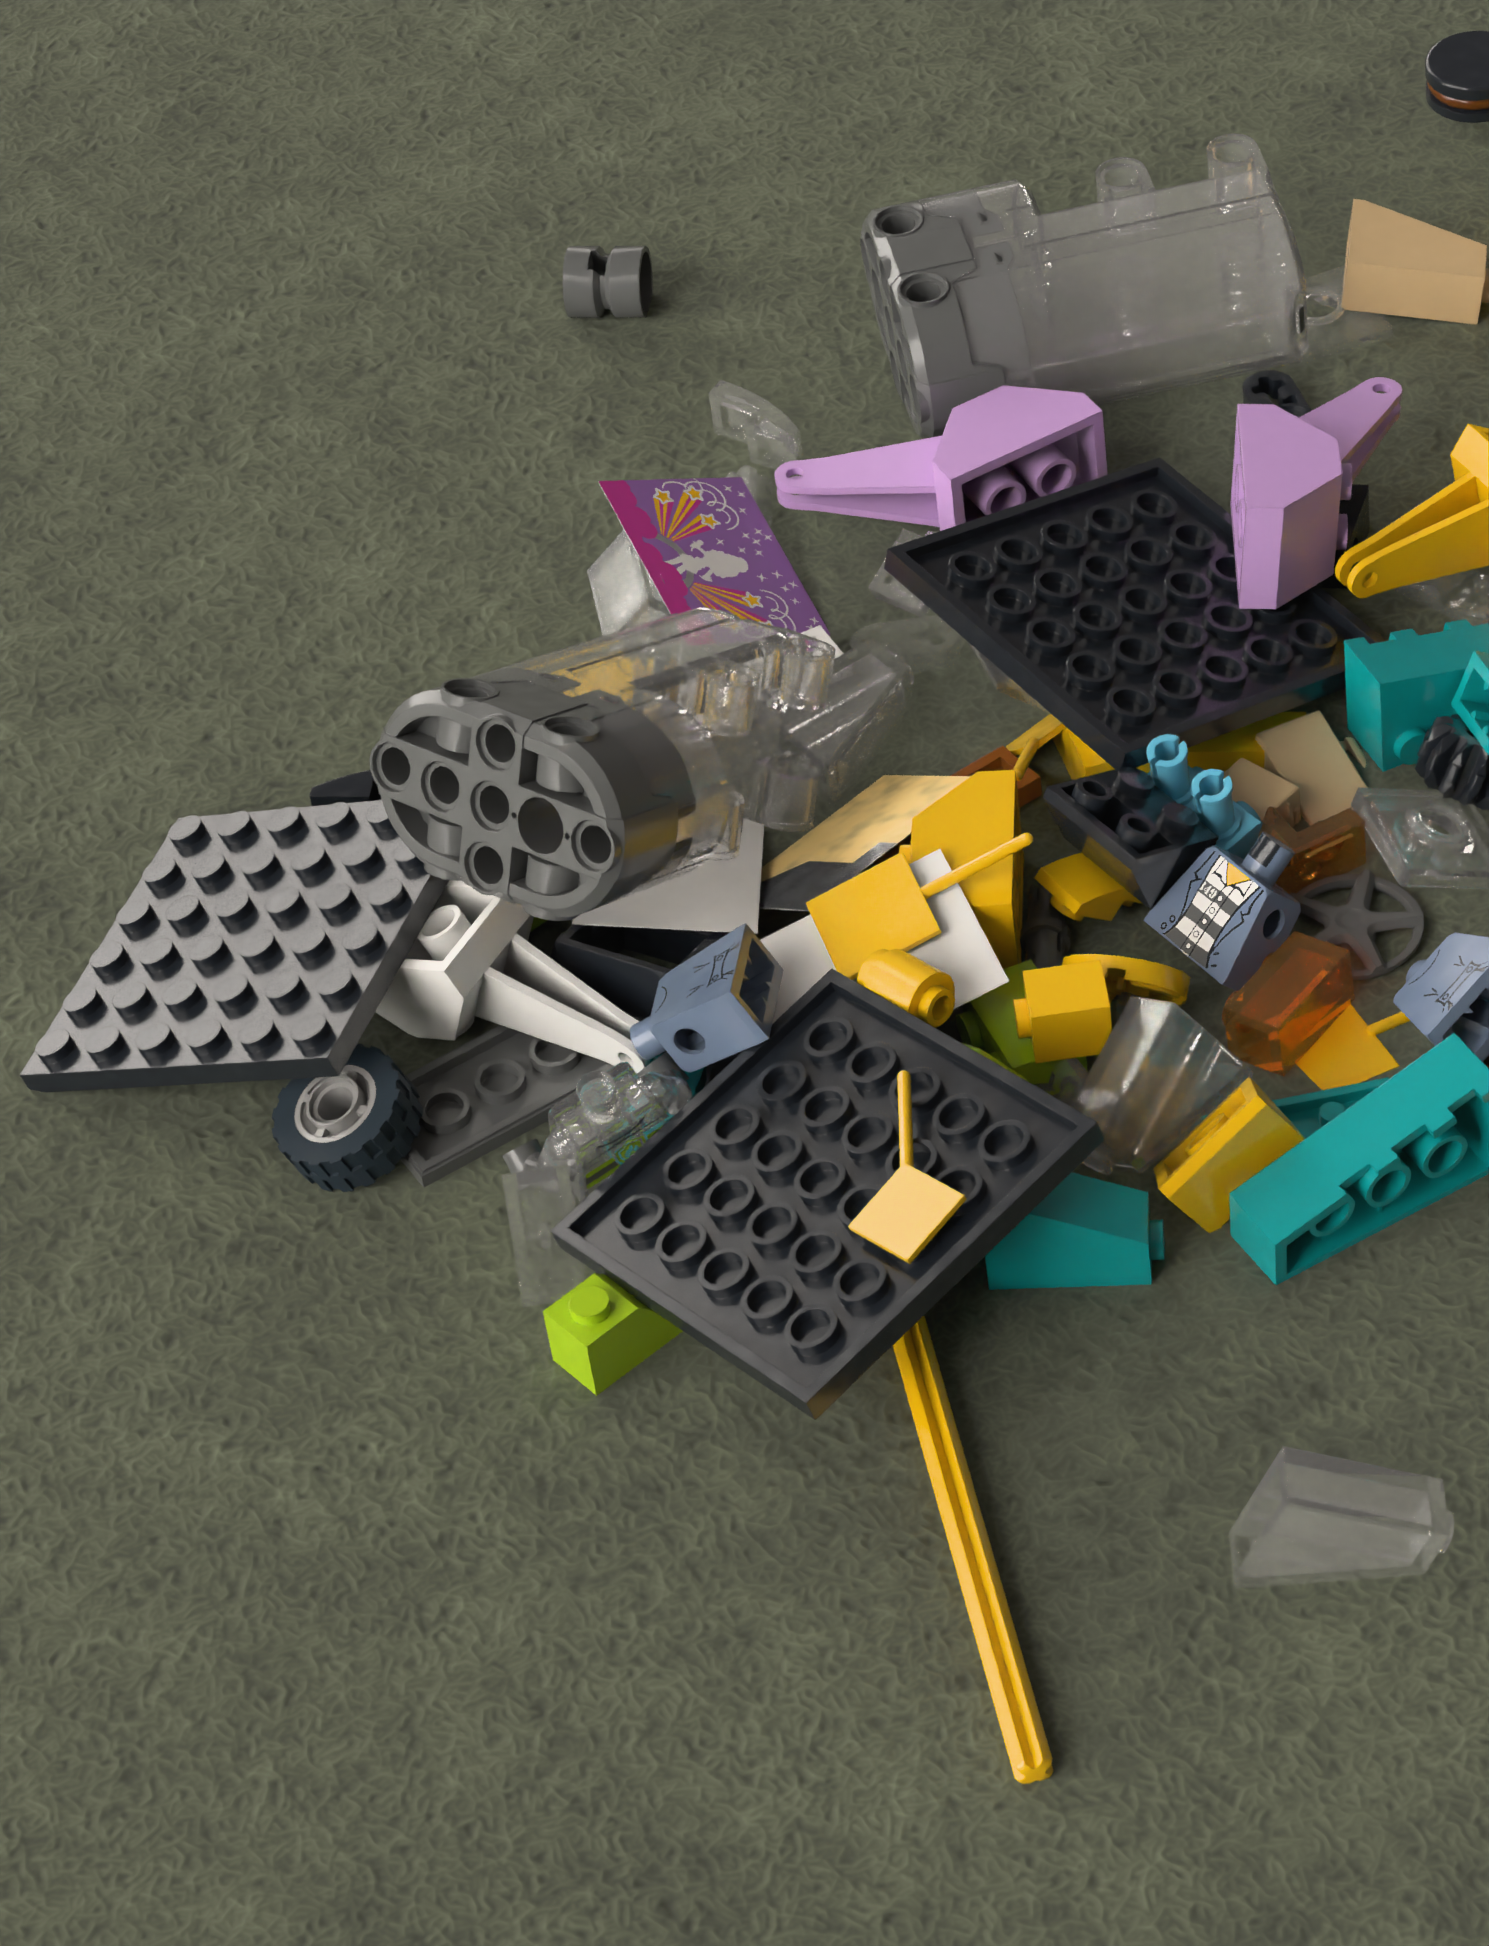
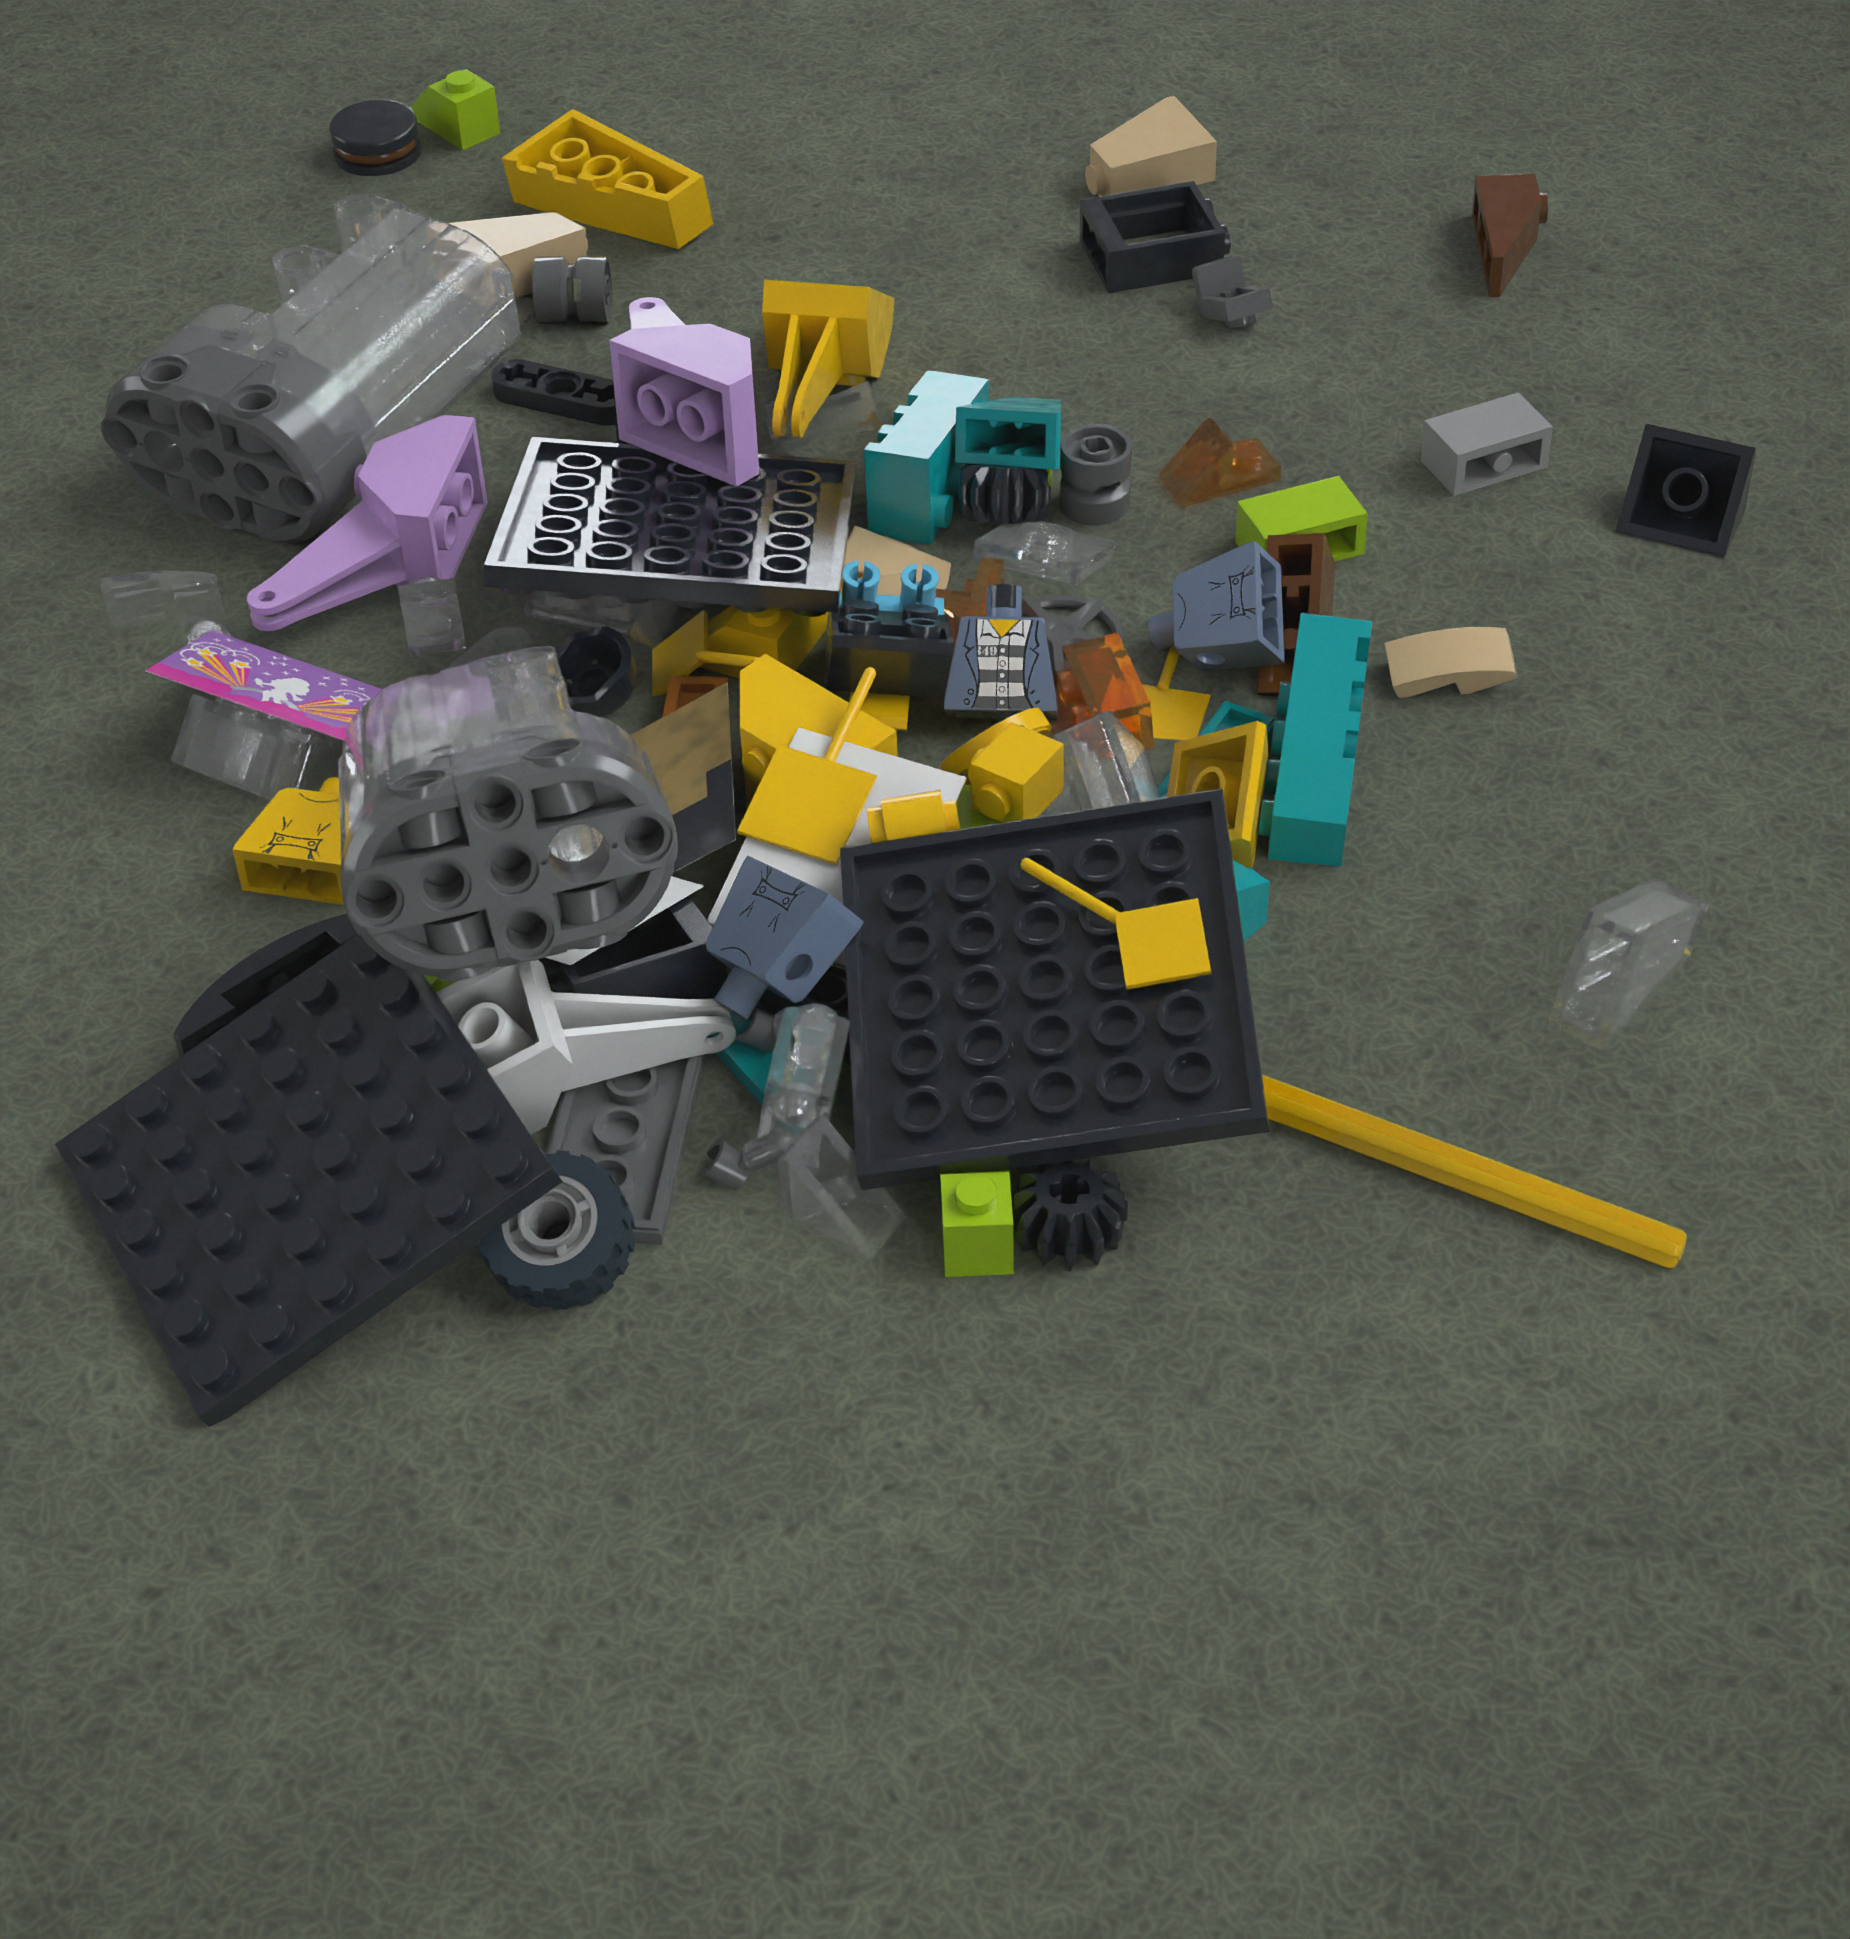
camera: 55 degrees left, 0 degrees up
(669, 1379) = (1069, 1211): none -> black gear
(951, 719) = (601, 686): none -> black helmet
(1414, 333) = (555, 289): none -> dark grey wheel

